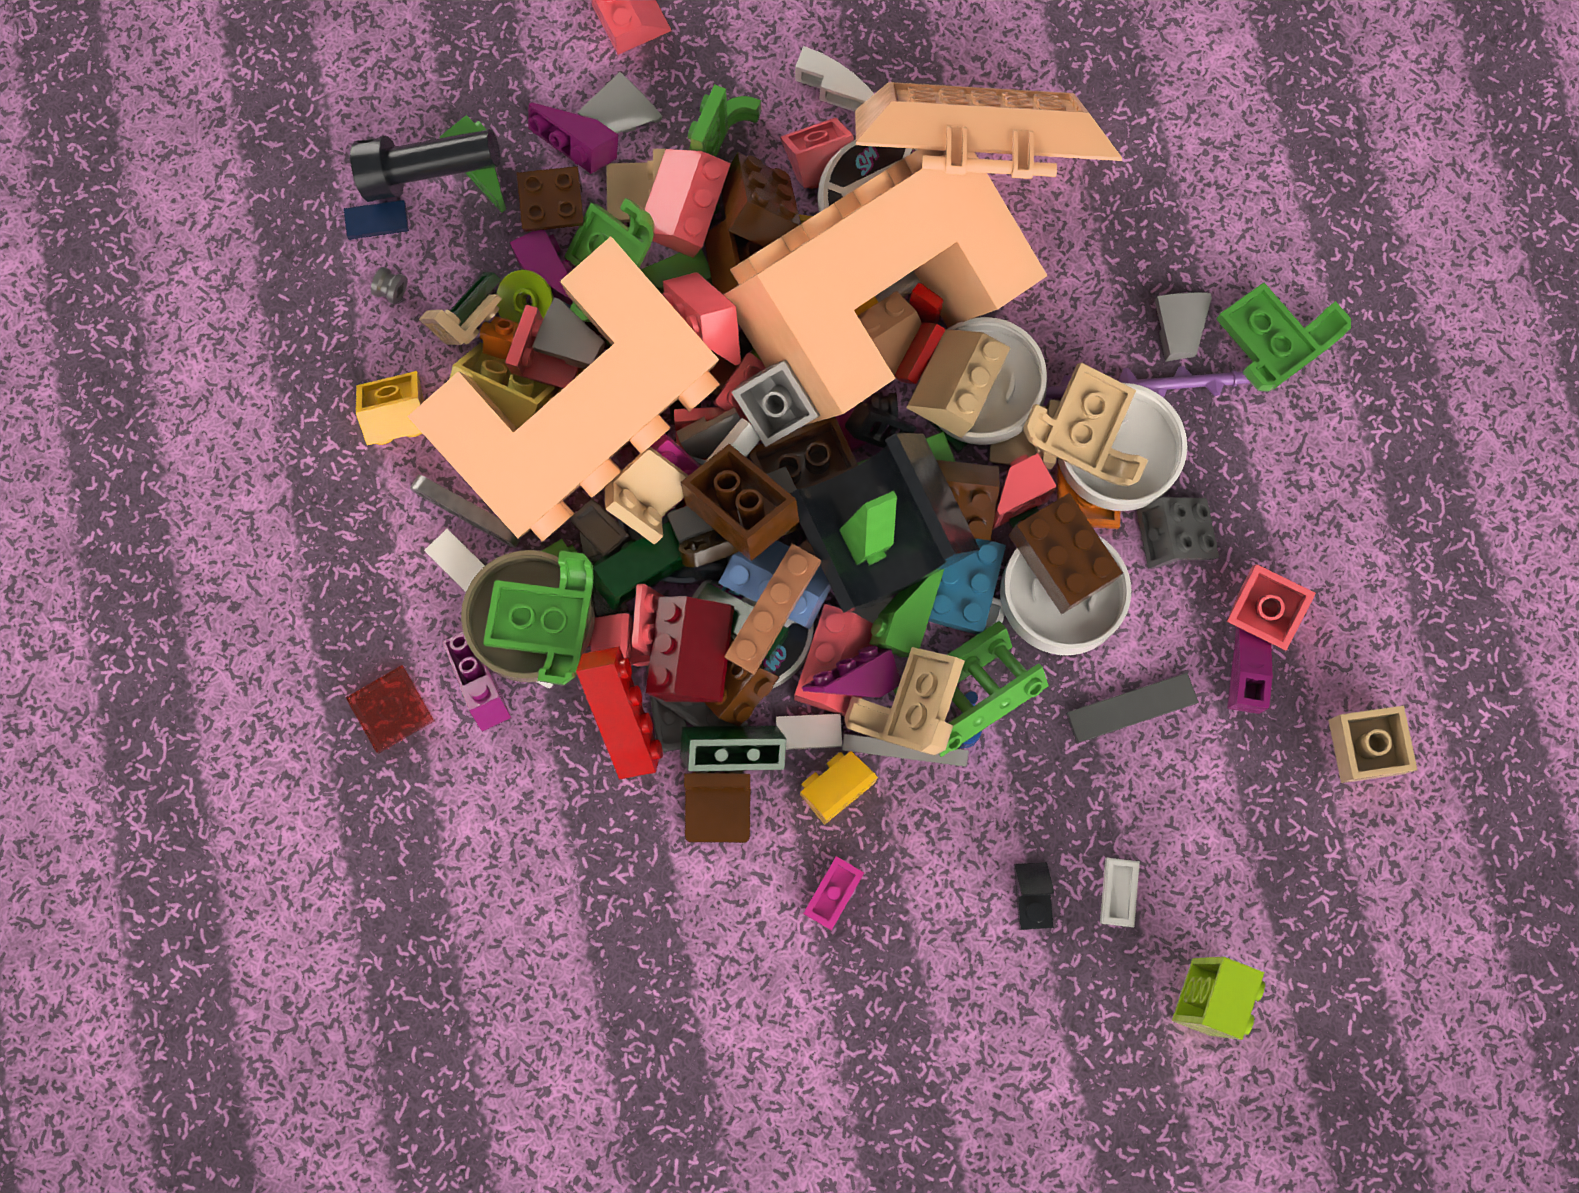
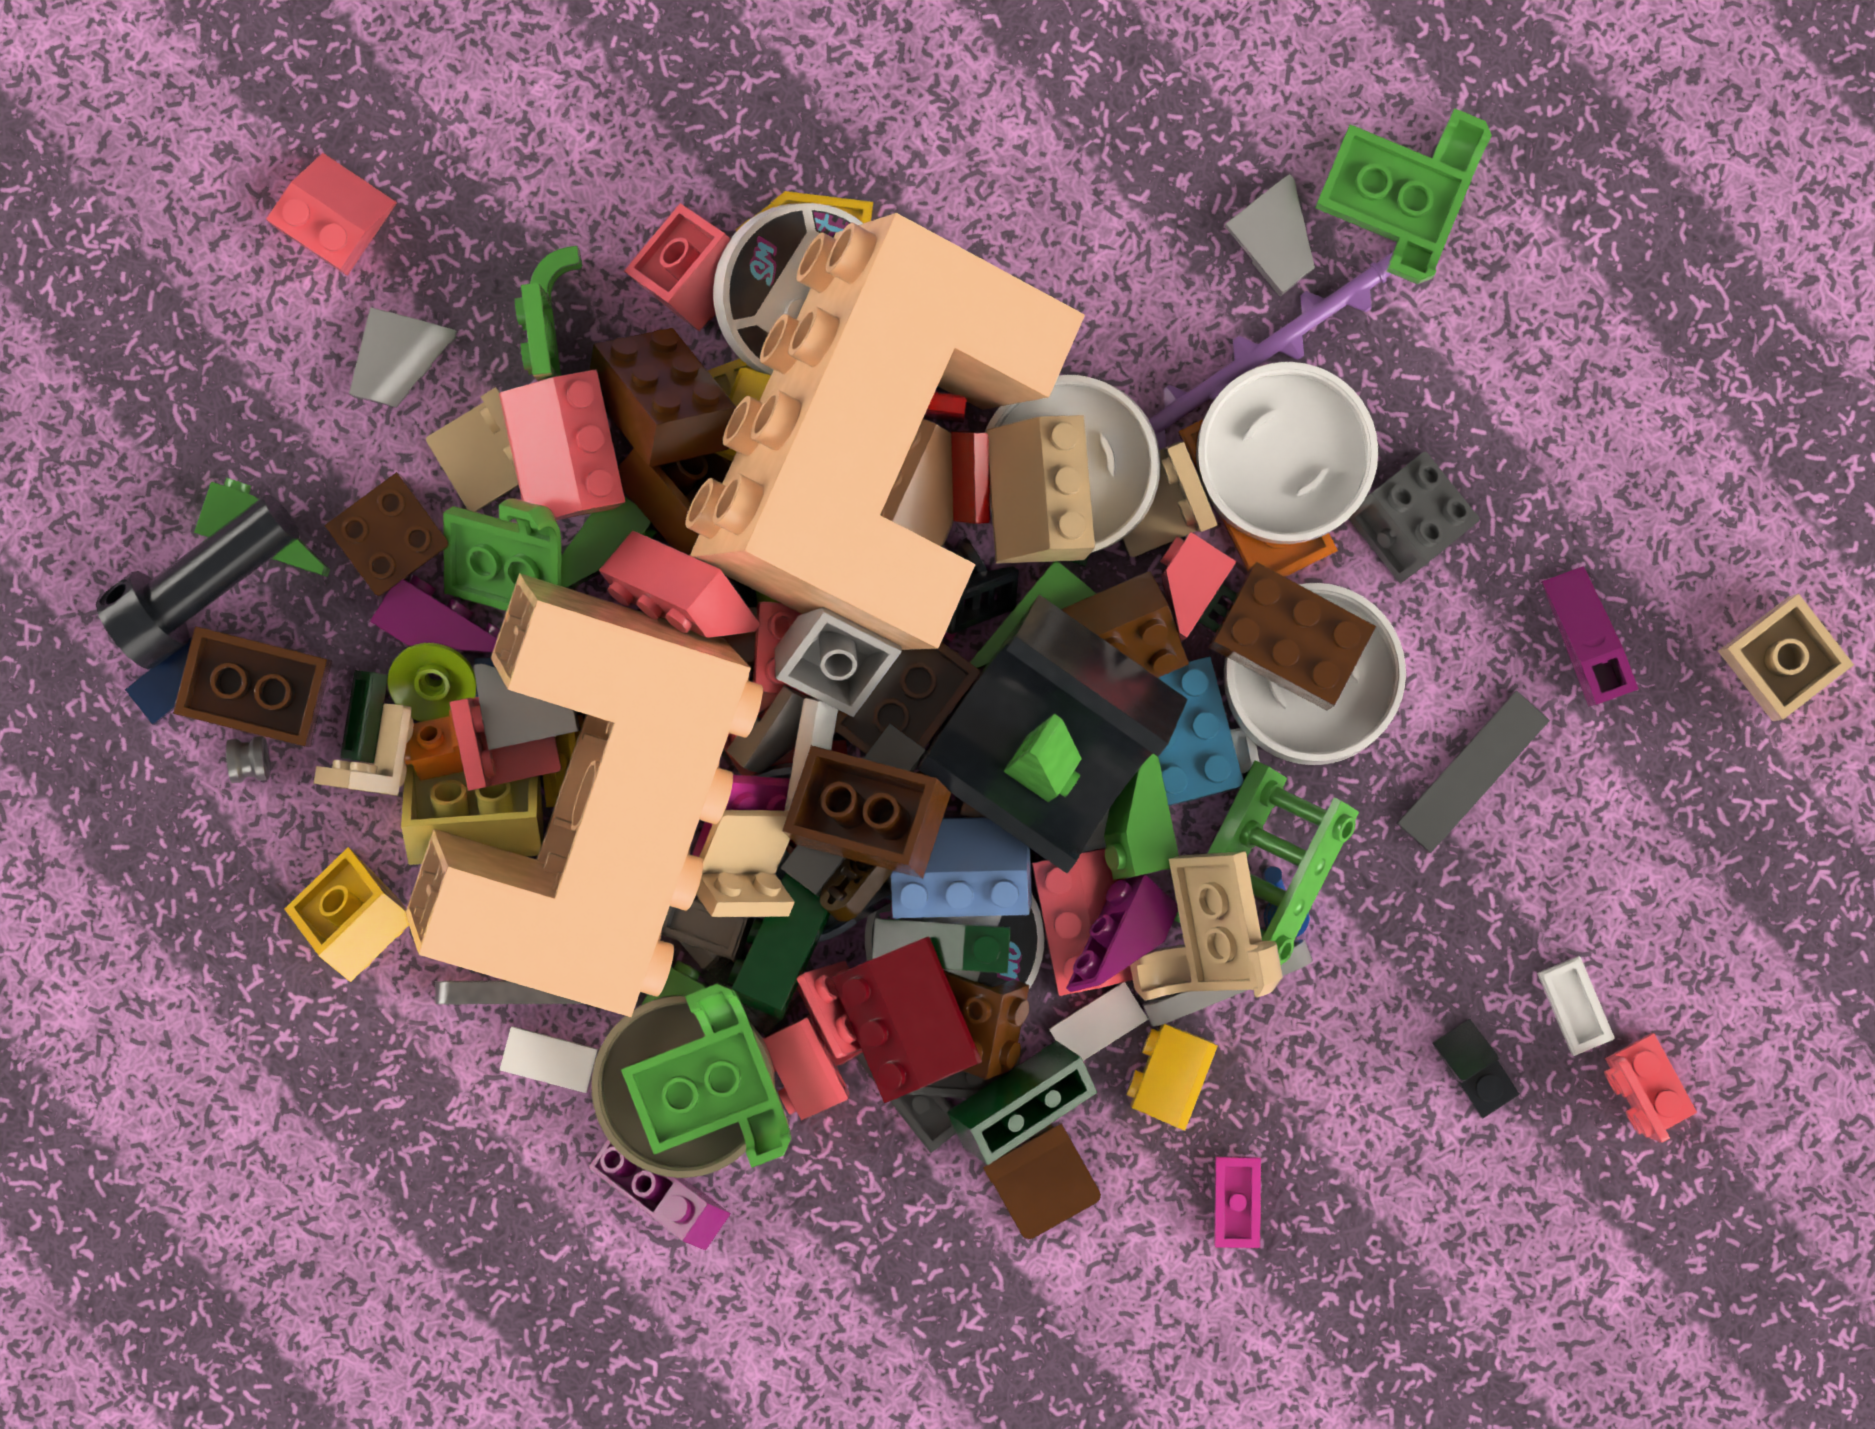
camera: 25 degrees left, 10 degrees up
(390, 709) = (576, 1285): clear red tile -> none
(417, 242) = (252, 687): none -> reddish brown brick
(574, 135) = (369, 427): magenta slope -> none
(619, 712) = (865, 1141): brick -> none
(773, 609) = (980, 918): nougat plate -> none
(835, 81) = (655, 158): white slope -> none
(982, 122) = (895, 156): light nougat container -> none
(1088, 426) = (1233, 461): tan piece -> none
(1140, 971) = (1651, 1087): none -> coral bracket
(1219, 997) = (1756, 1079): lime brick -> none
(1270, 606) = (1575, 554): coral slope -> none

